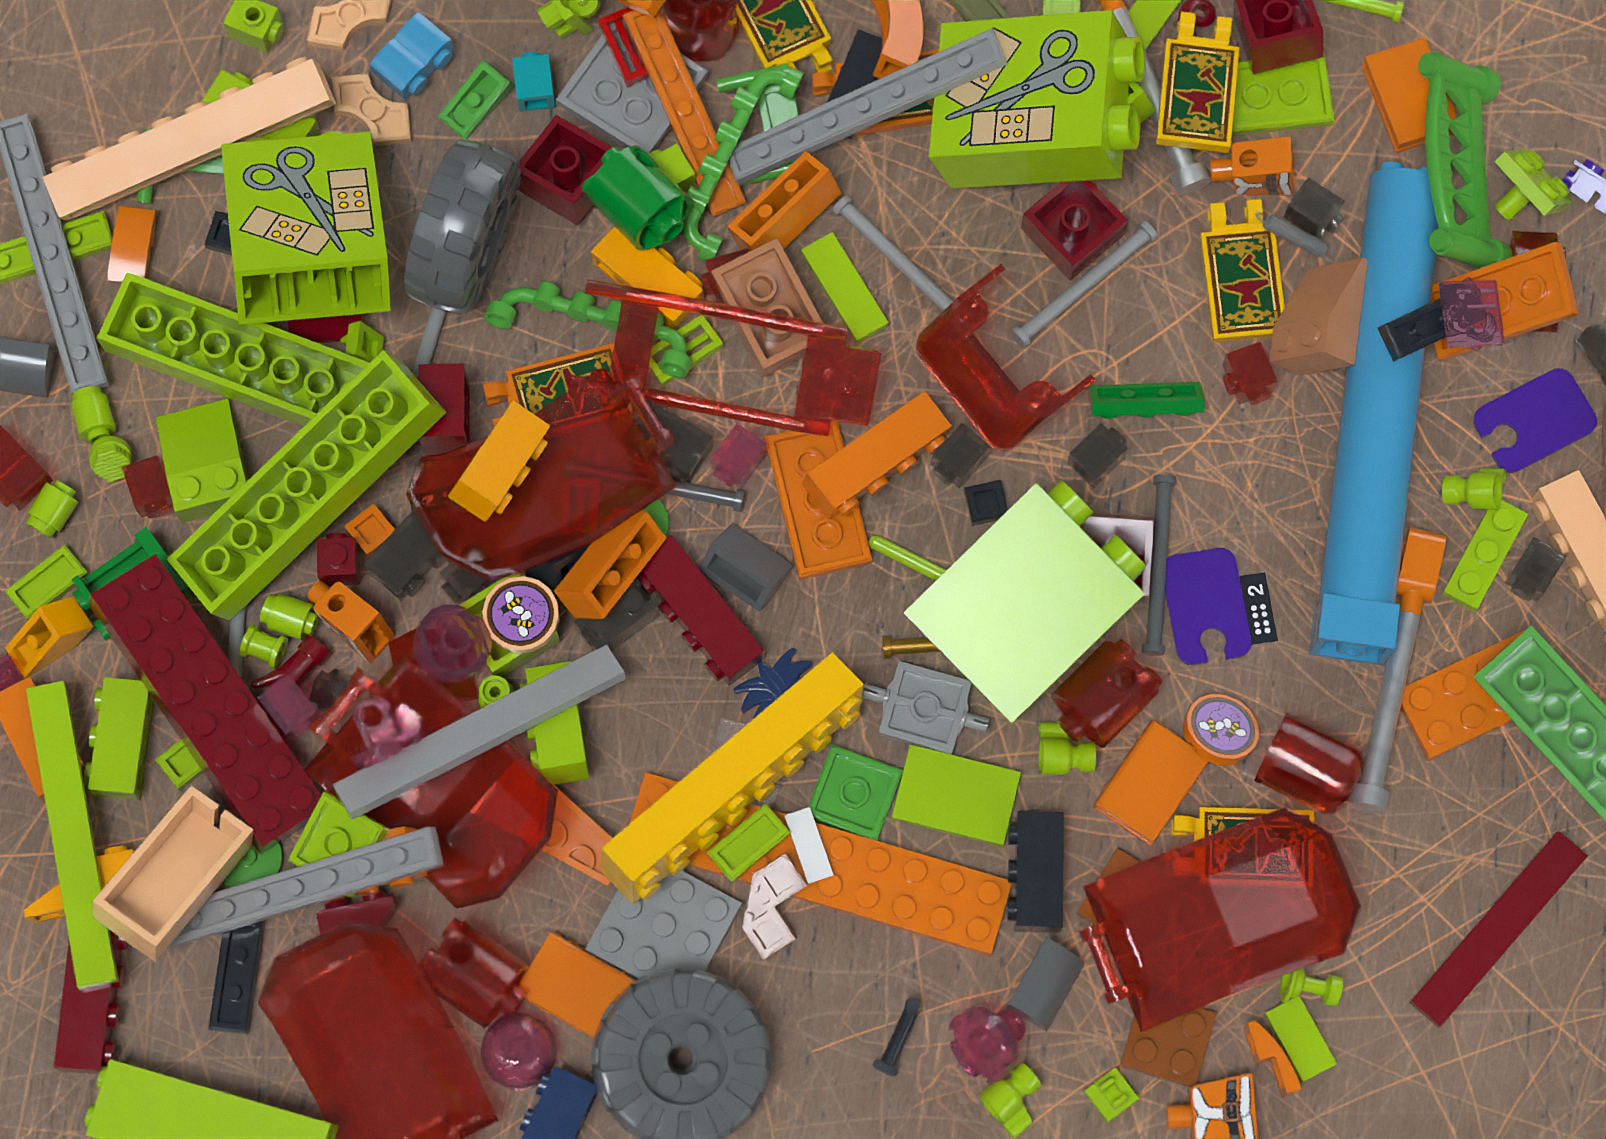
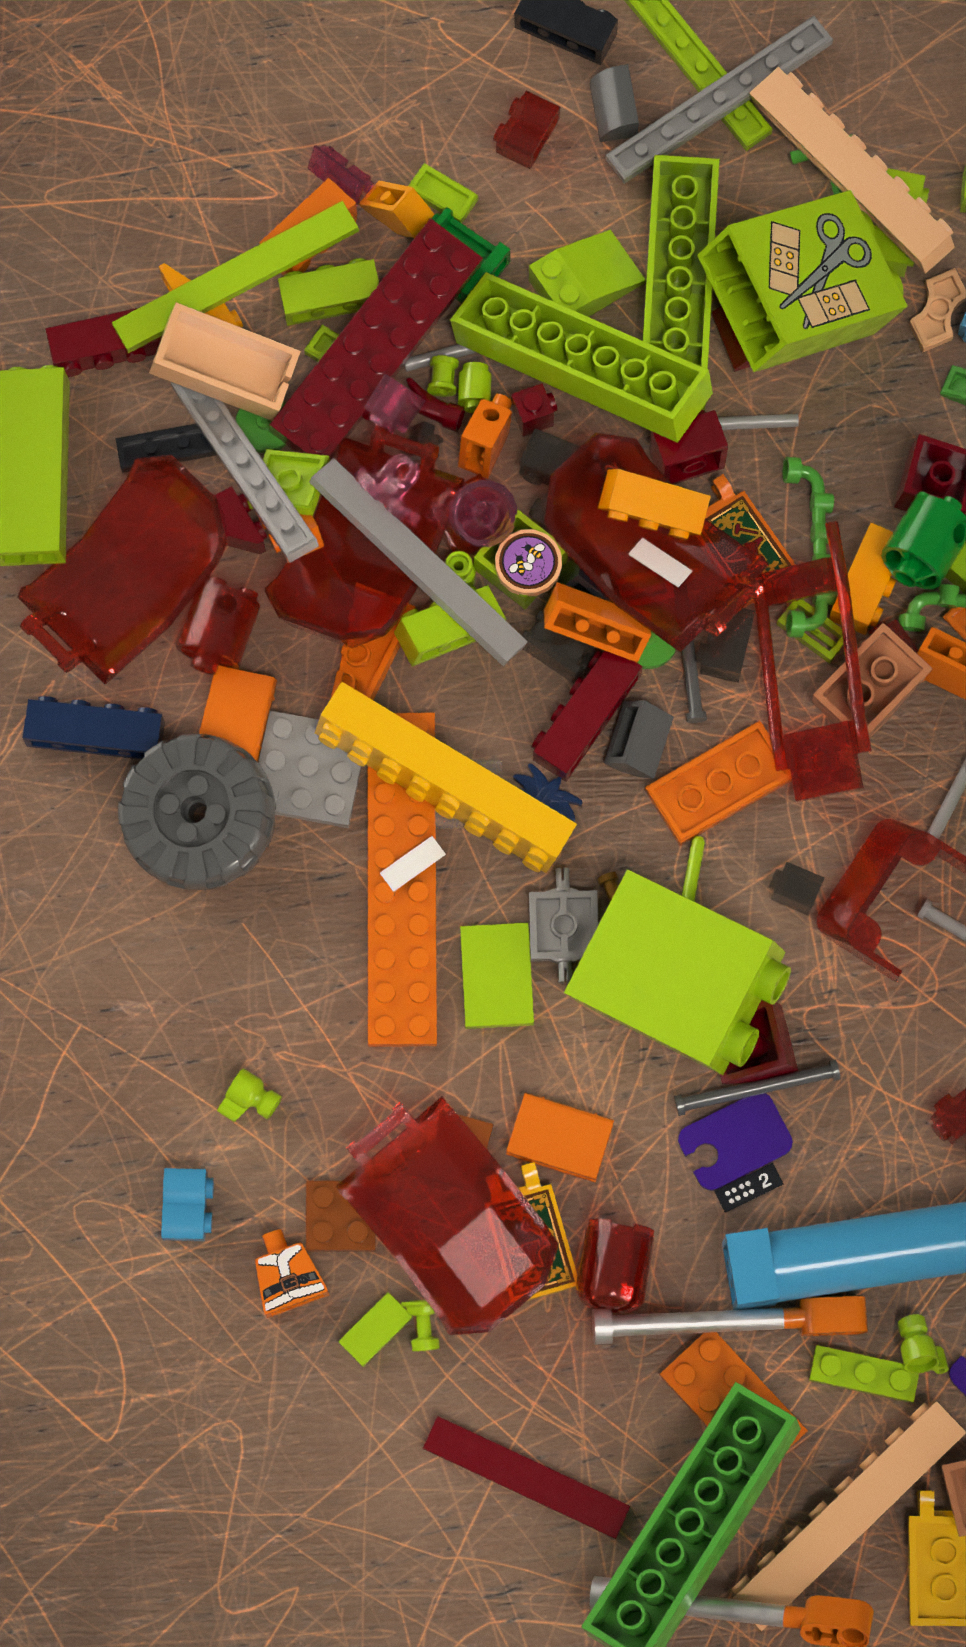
camera: 75 degrees right, 0 degrees up
(52, 508) = (504, 174): lime brick -> none
(92, 414) = (593, 179): lime brick -> none
(109, 456) = (561, 204): lime piece -> none
(132, 242) = (751, 159): orange slope -> none
(148, 487) = (545, 238): clear red brick -> none
(362, 341) = (725, 369): lime tile -> none
(369, 529) = (570, 426): orange plate -> none
(461, 226) = (847, 404): dark grey wheel -> none
(518, 1051) = (170, 685): clear pink cylinder -> none
(559, 481) = (660, 562): none -> white sticker
(738, 457) = (732, 703): clear pink brick -> none
(748, 843) = (398, 812): lime tile -> none
(762, 918) = (339, 846): tile -> none
(844, 288) = (917, 747): lime tile -> none
(854, 793) = (472, 890): bright green tile -> none
(876, 456) = (771, 816): orange brick -> none
(887, 1064) = (297, 990): black piece -> none
(985, 502) = (766, 921): black tile -> none
(985, 1041) = (287, 1057): clear pink tile -> none
(1036, 871) = (450, 1061): black brick -> none
(1046, 984) = (355, 1097): dark grey brick -> none
(1059, 756) = (558, 1051): lime piece -> none
(1093, 701) = (608, 1068): clear red cylinder -> none
(1098, 454) = (839, 1006): clear smoke brick -> none
(1111, 1095) = (278, 1181): lime tile -> none
(1146, 399) = (904, 1033): green plate -> none
(1221, 729) = (625, 1182): tile -> none
(1265, 1049) = (356, 1299): orange slope -> none
(1534, 570) = (861, 1420): clear smoke brick -> none

